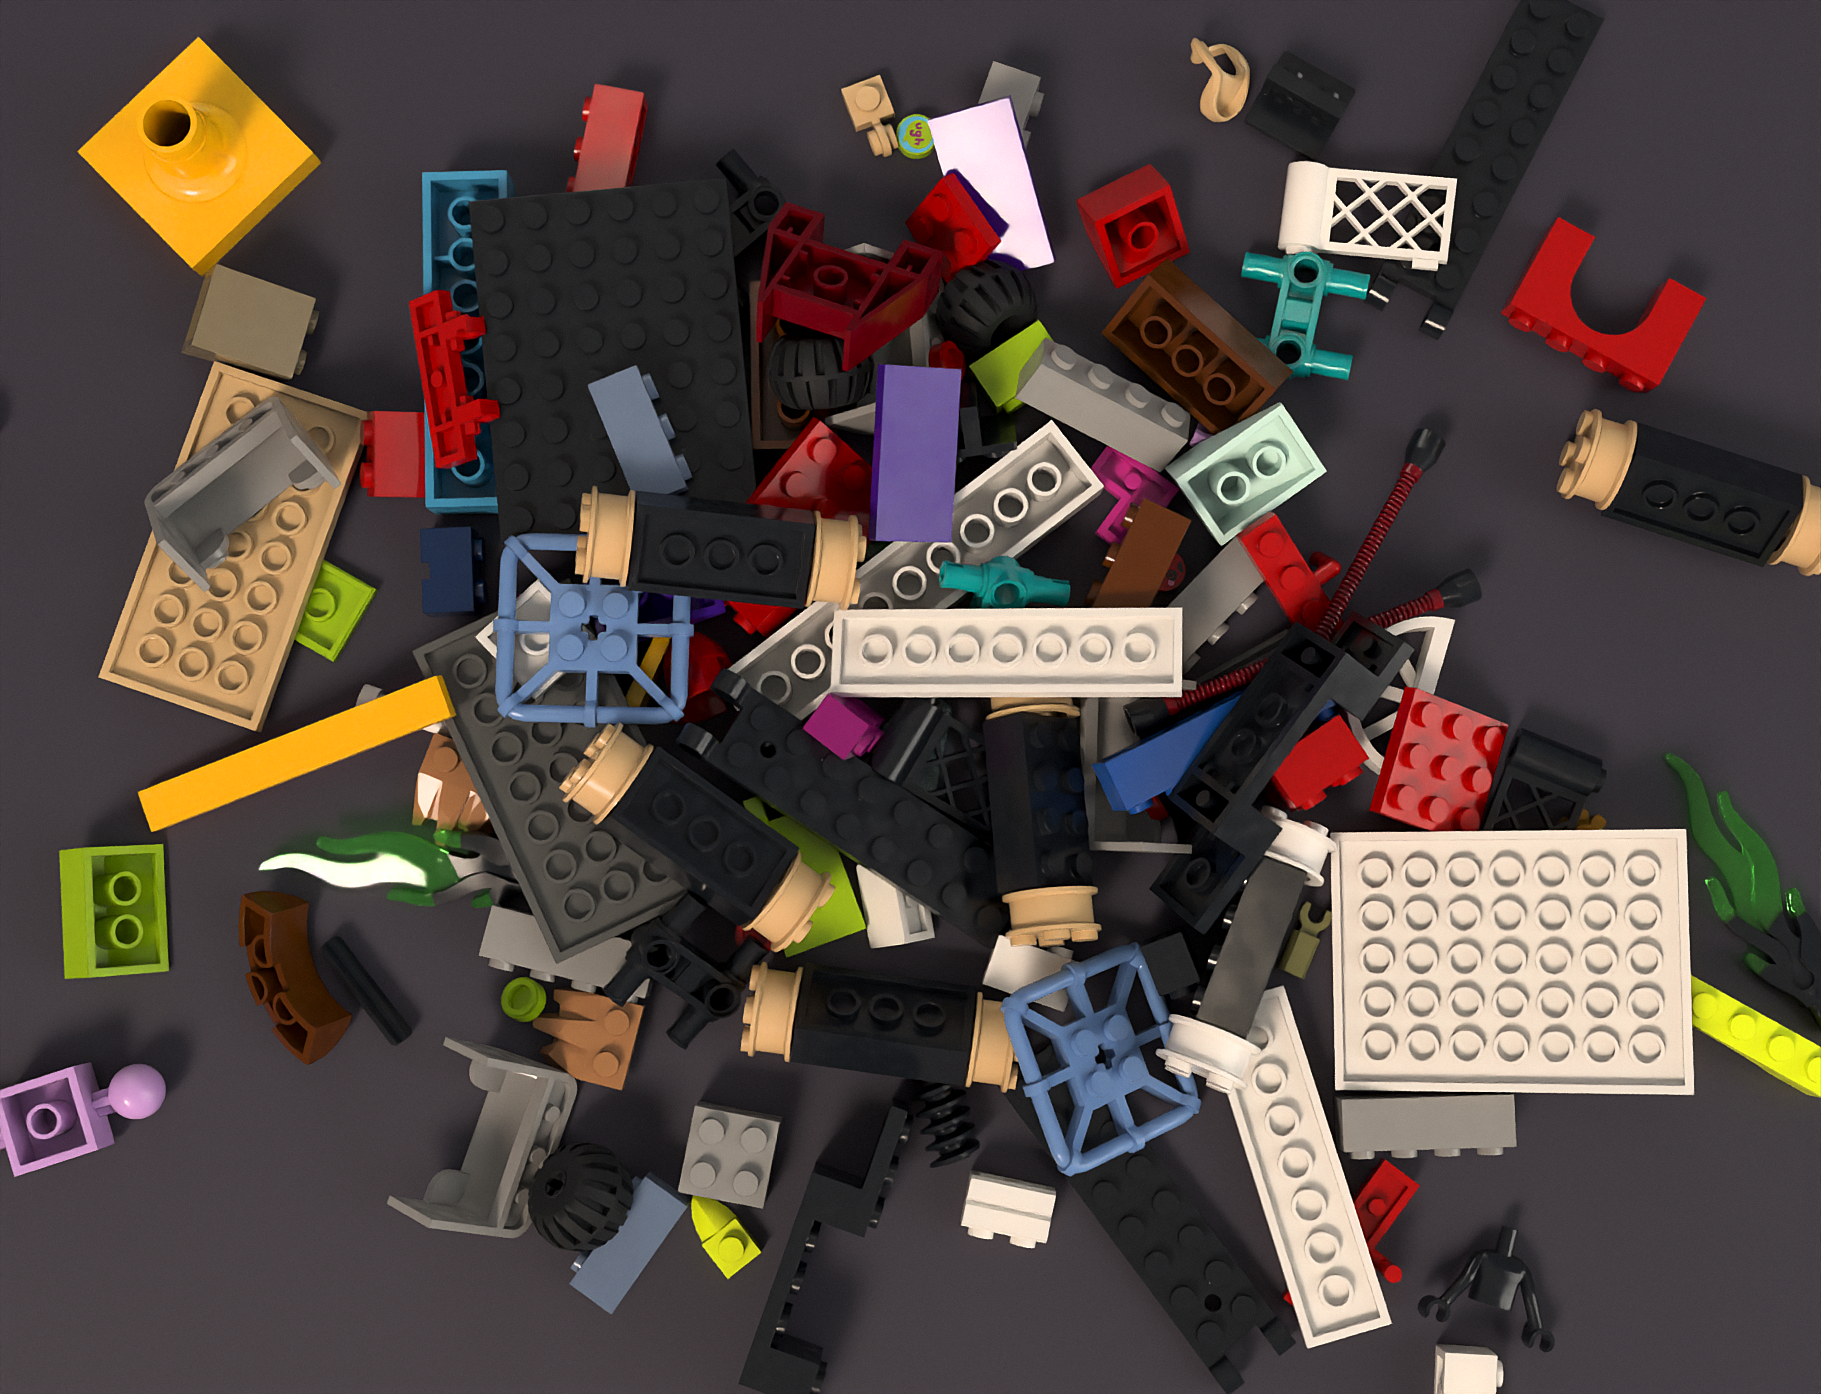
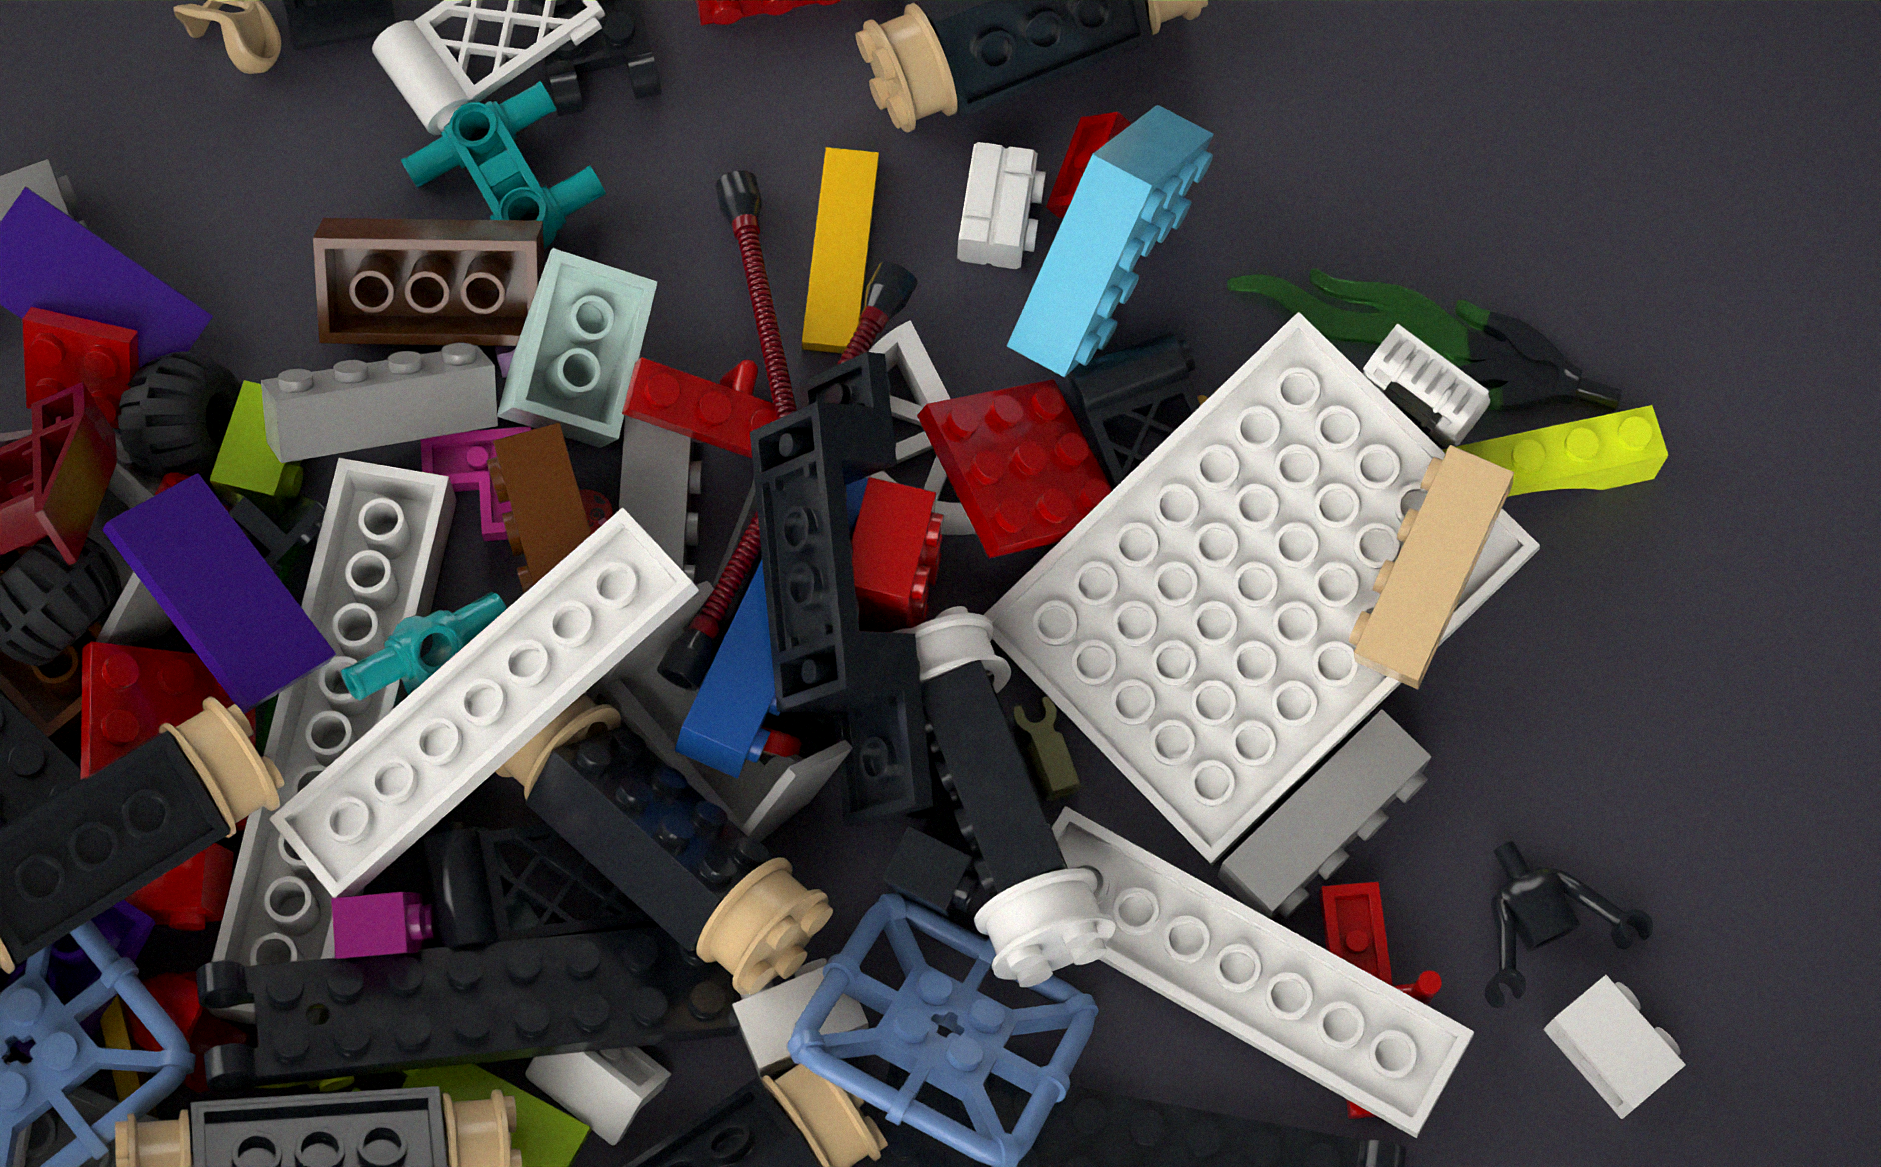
camera: 45 degrees left, 15 degrees down
(1133, 225) = (263, 223): red slope -> none
(1455, 533) = (840, 249): none -> yellow tile
(1574, 589) = (998, 205): none -> white brick
(1619, 1053) = (1432, 567): none -> tan brick
(1620, 681) = (1119, 211): none -> medium azure brick
(1651, 610) = (1089, 136): none -> red plate
(1717, 916) = (1427, 386): none -> white piece

